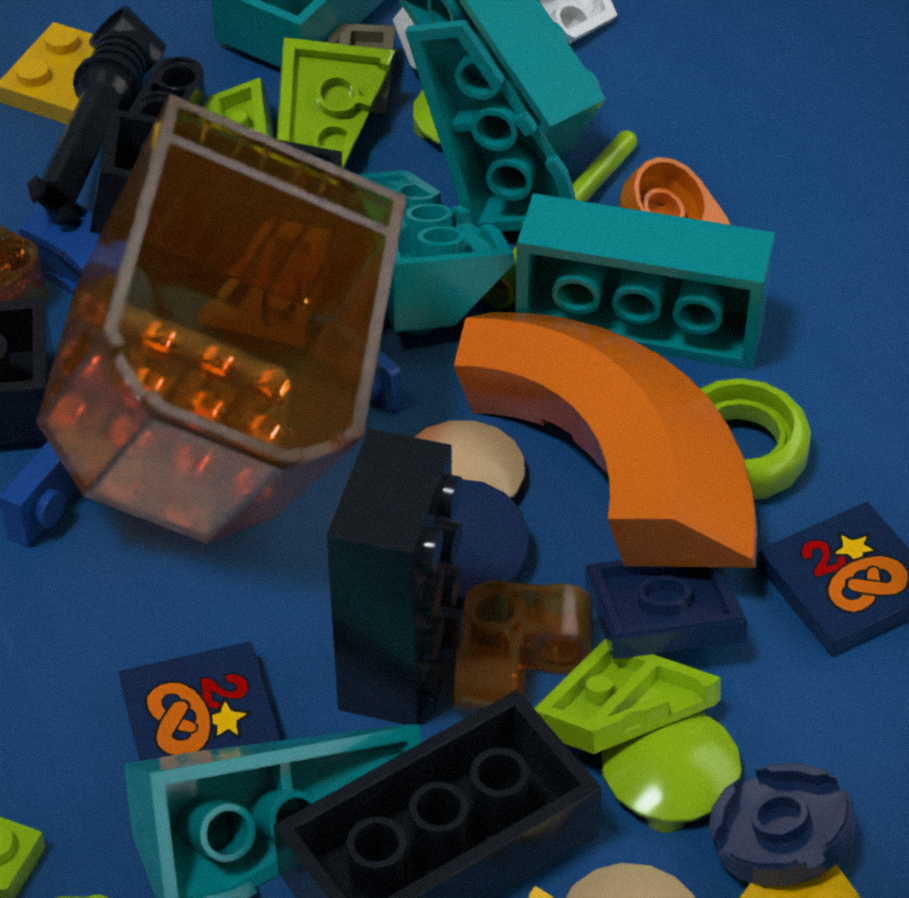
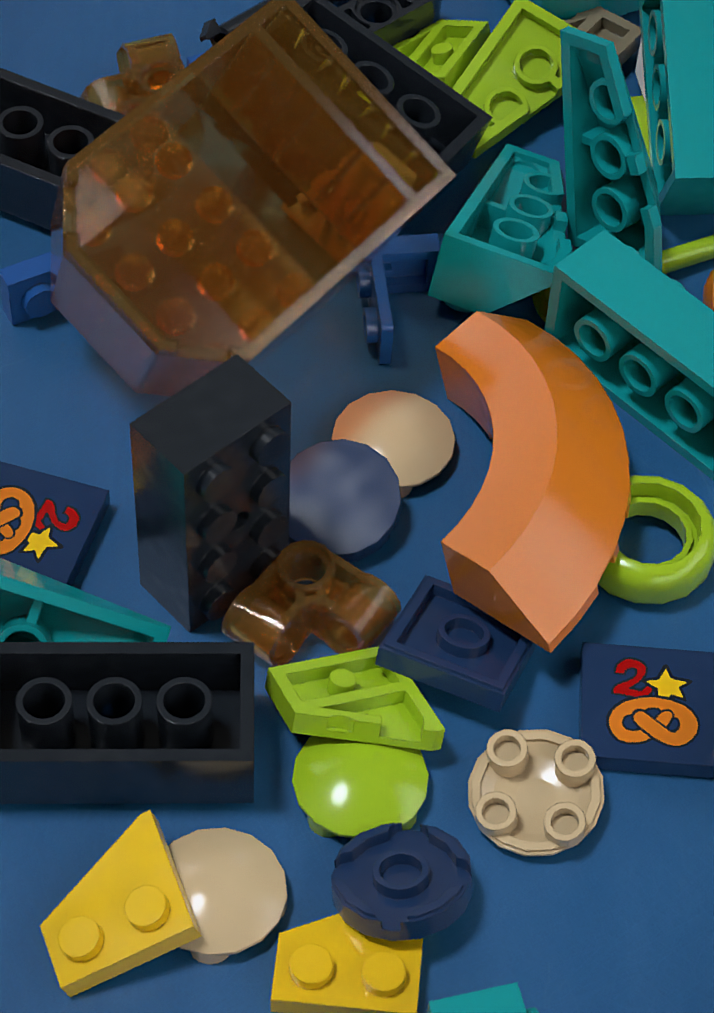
camera: 30 degrees right, 5 degrees up
(822, 691) = (536, 791): none -> tan dish

